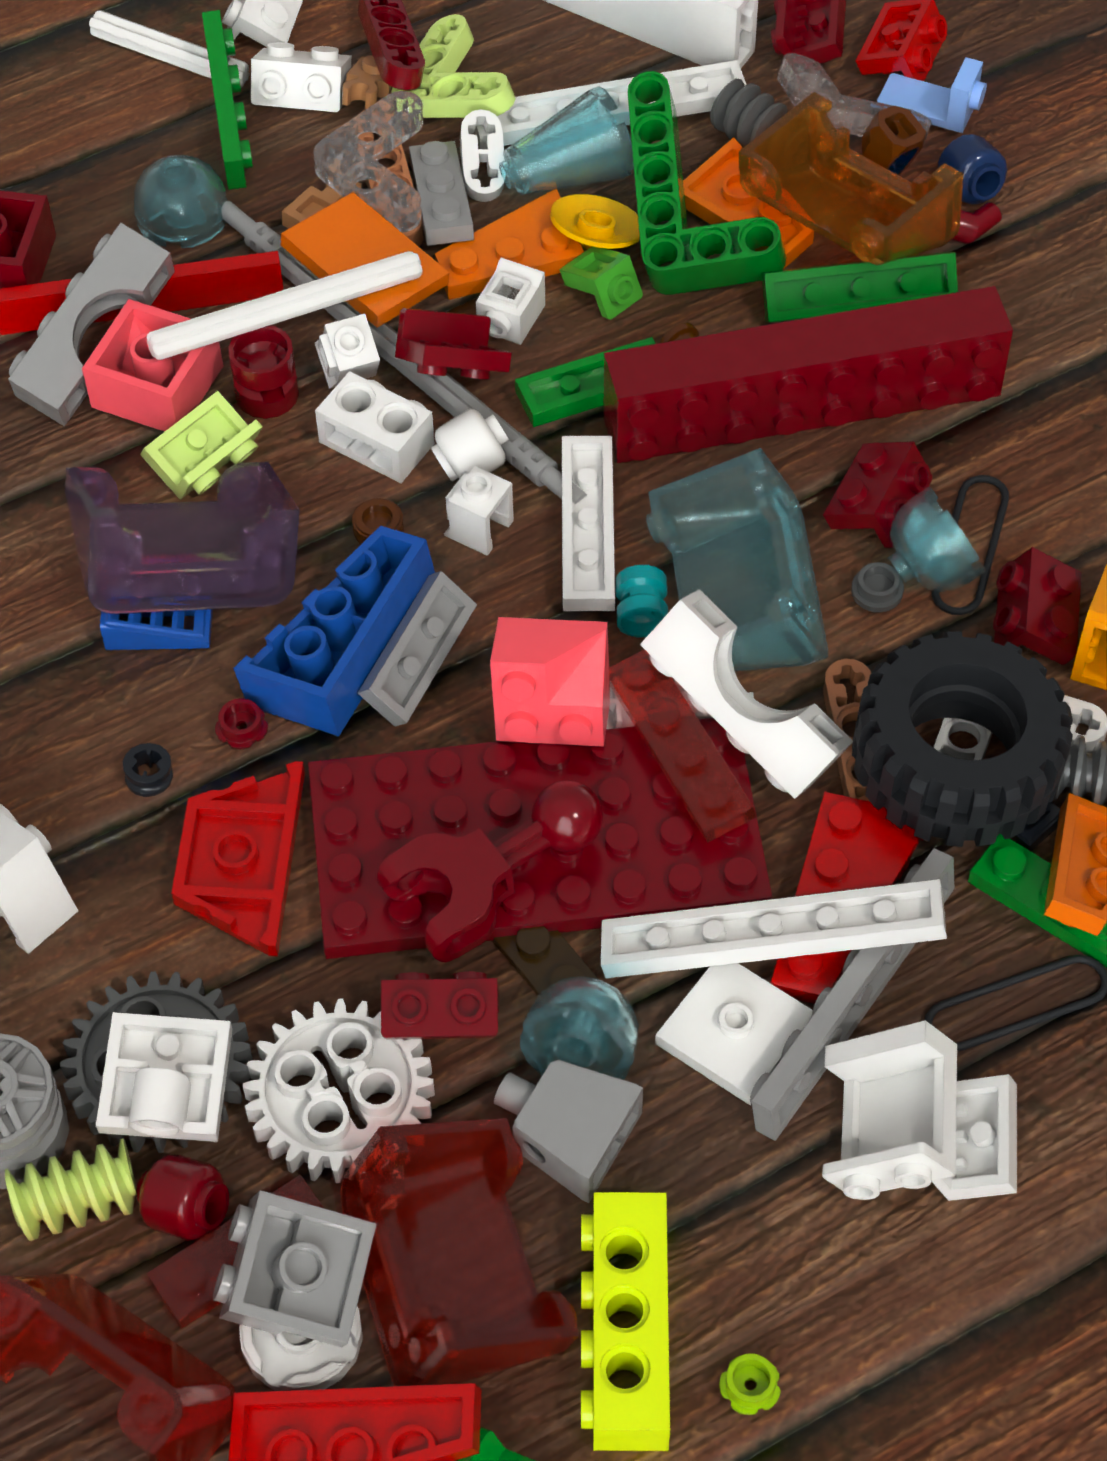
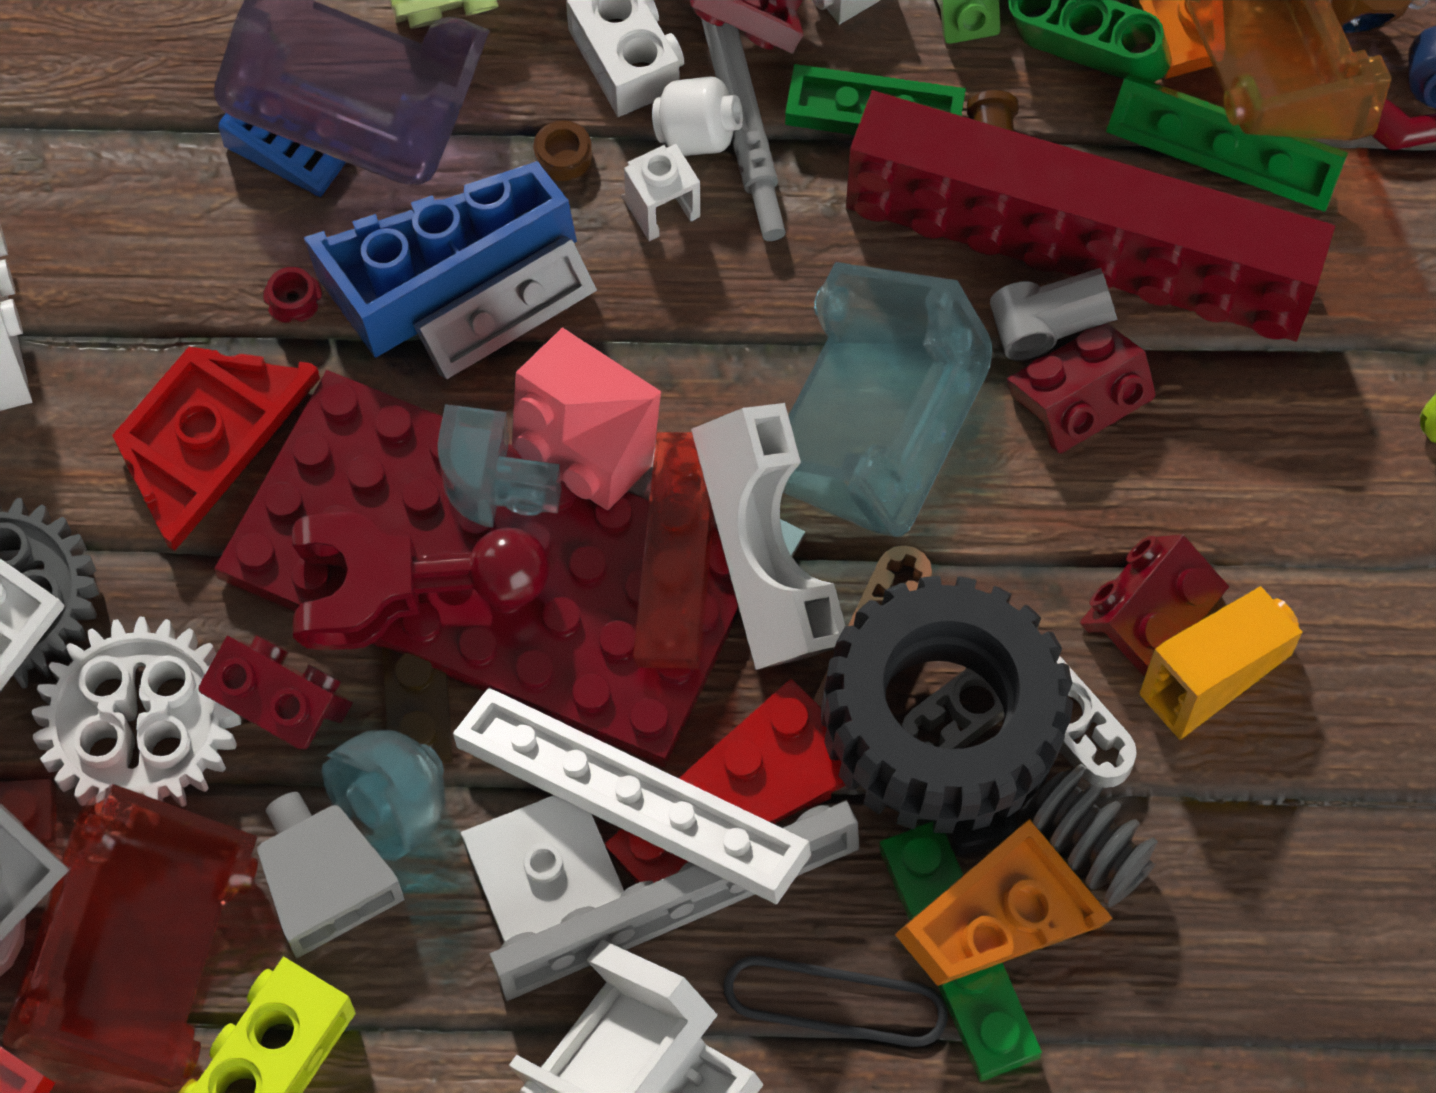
camera: 30 degrees right, 10 degrees up
(147, 785) = (163, 288): black bush -> none
(496, 767) = (481, 476): none -> clear light blue brick
(588, 524) = (762, 261): white plate -> none
(641, 599) = (757, 372): teal wheel -> none
(816, 463) = (1036, 316): none -> light grey piece
(877, 587) = (1006, 489): dark grey plate -> none
(932, 546) = (1085, 476): clear light blue cylinder -> none
(992, 546) = (1125, 473): black piece -> none

